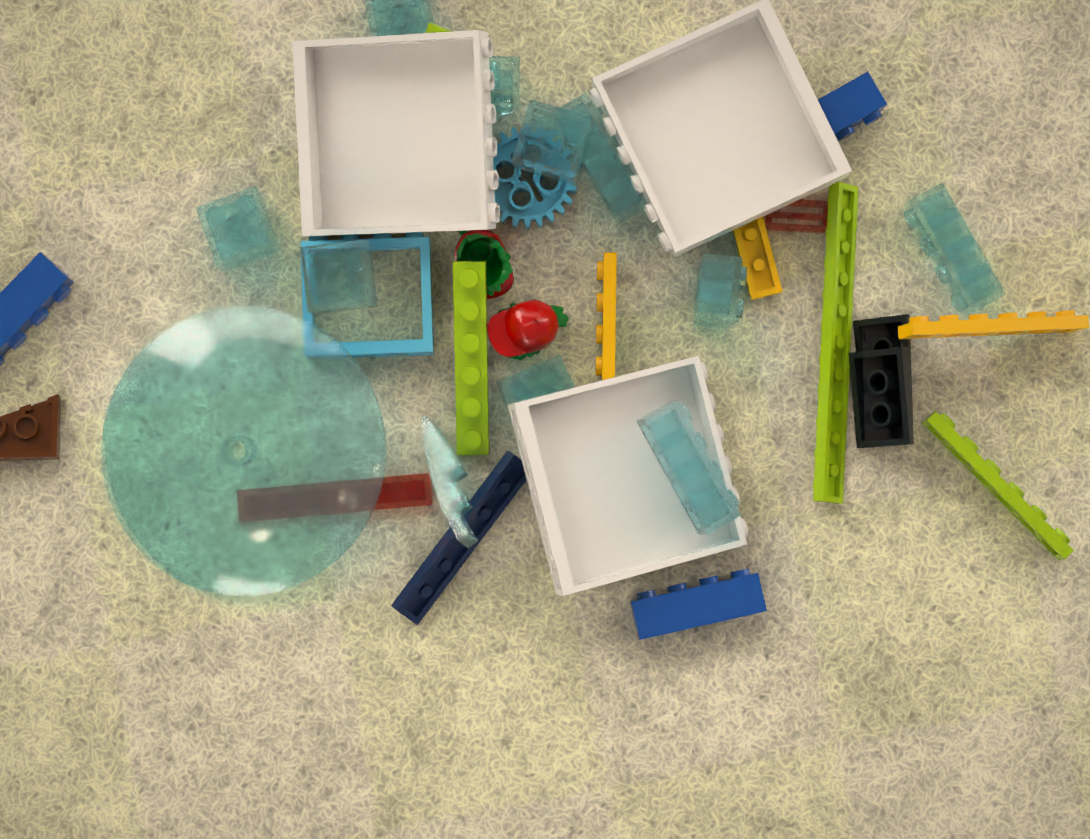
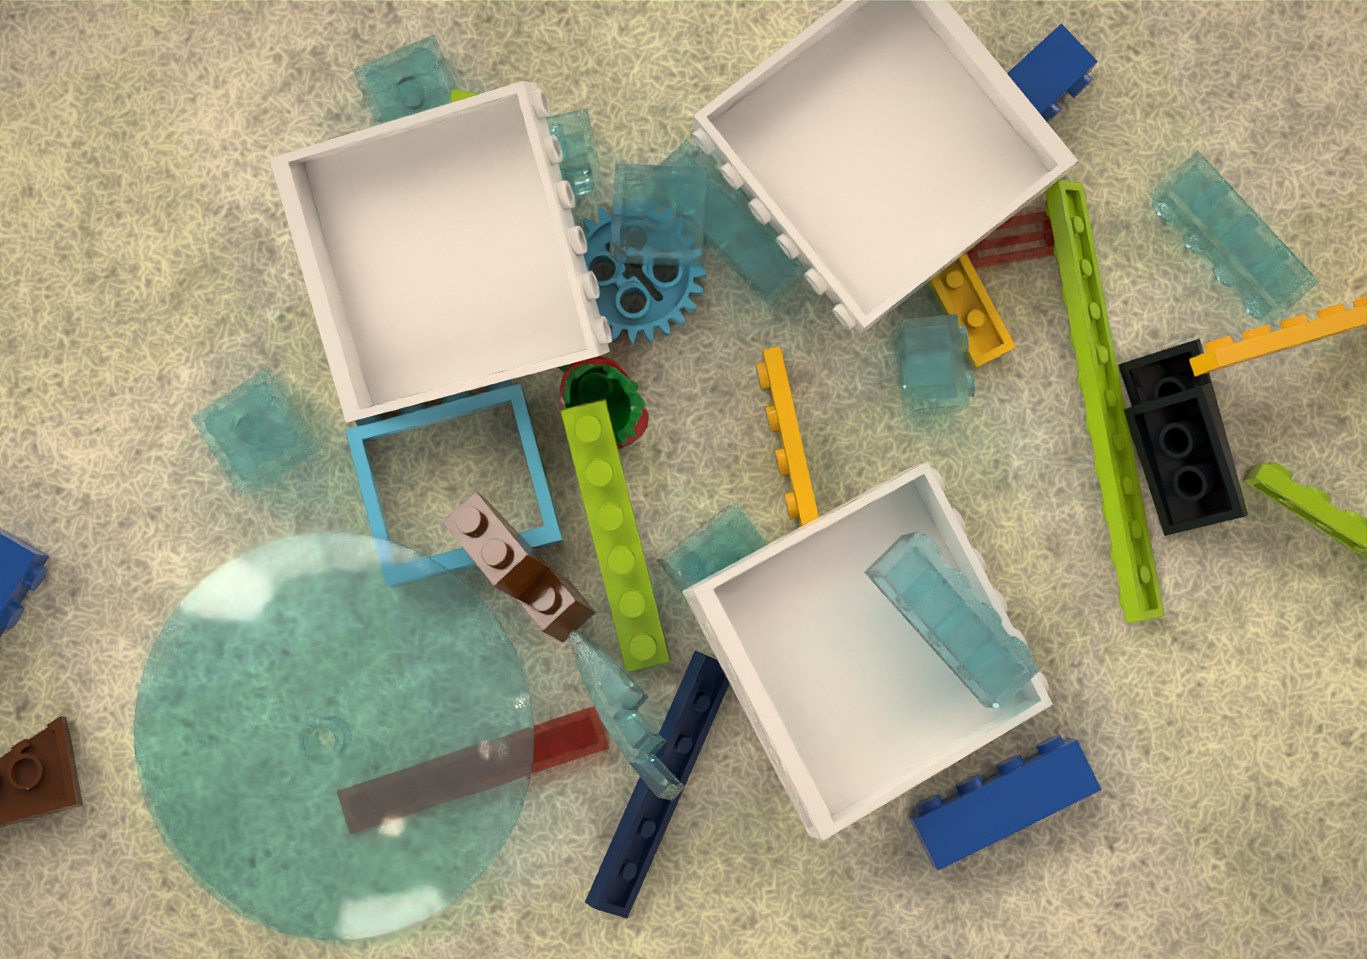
camera: 15 degrees left, 0 degrees up
(338, 276) = (408, 467): clear light blue brick -> none
(398, 364) = (518, 568): none -> arch
(525, 328) = (679, 477): red hair -> none

